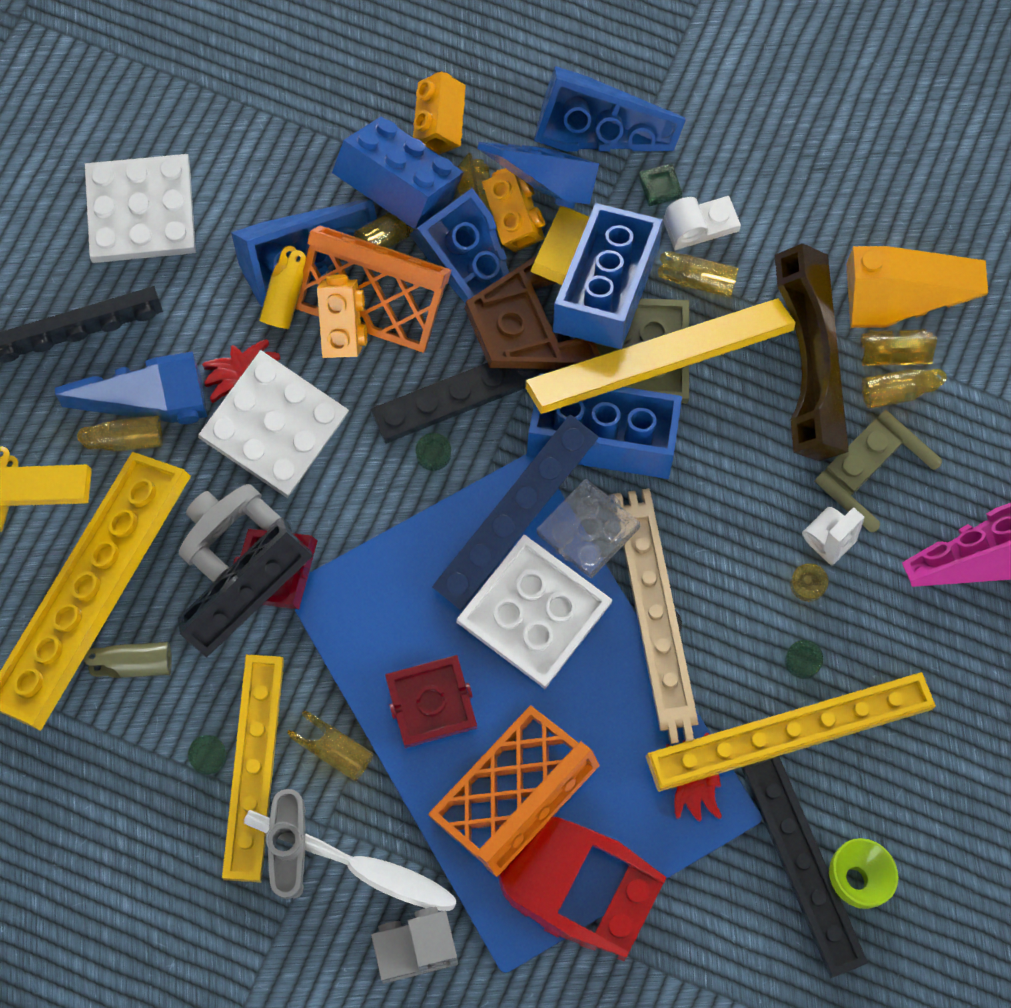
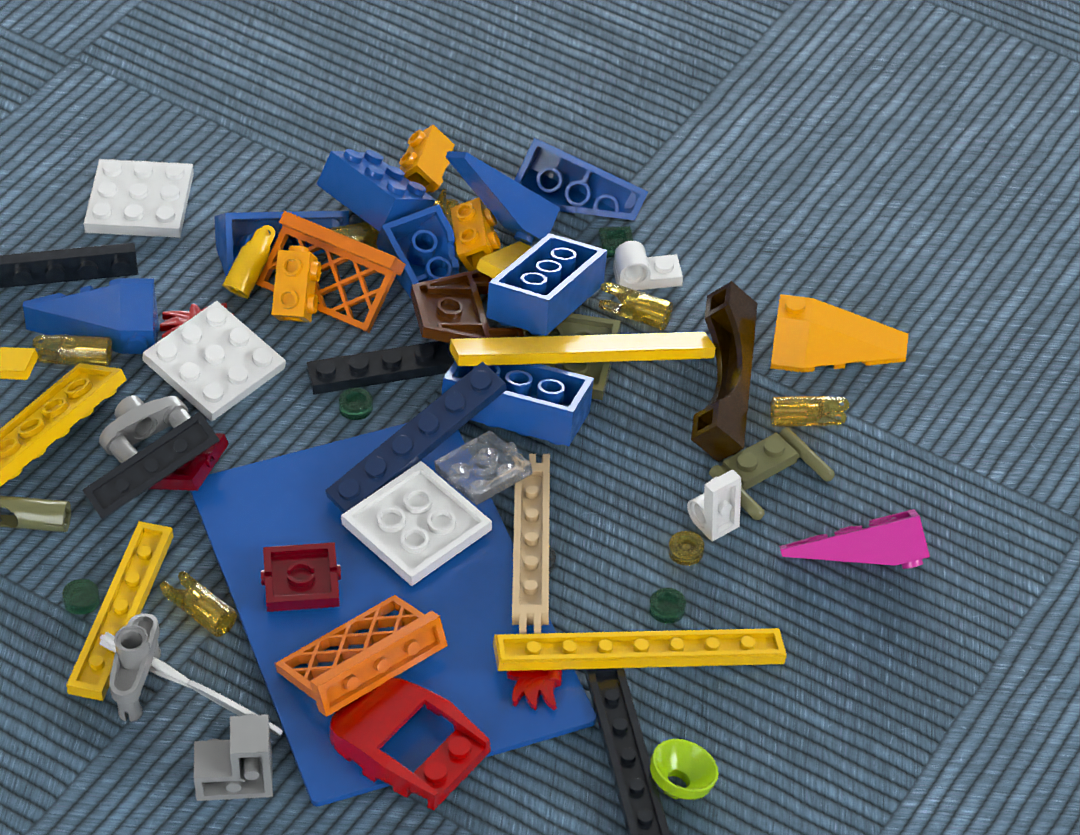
camera: 10 degrees right, 25 degrees down
(908, 348) = (809, 382): clear yellow hinge -> none

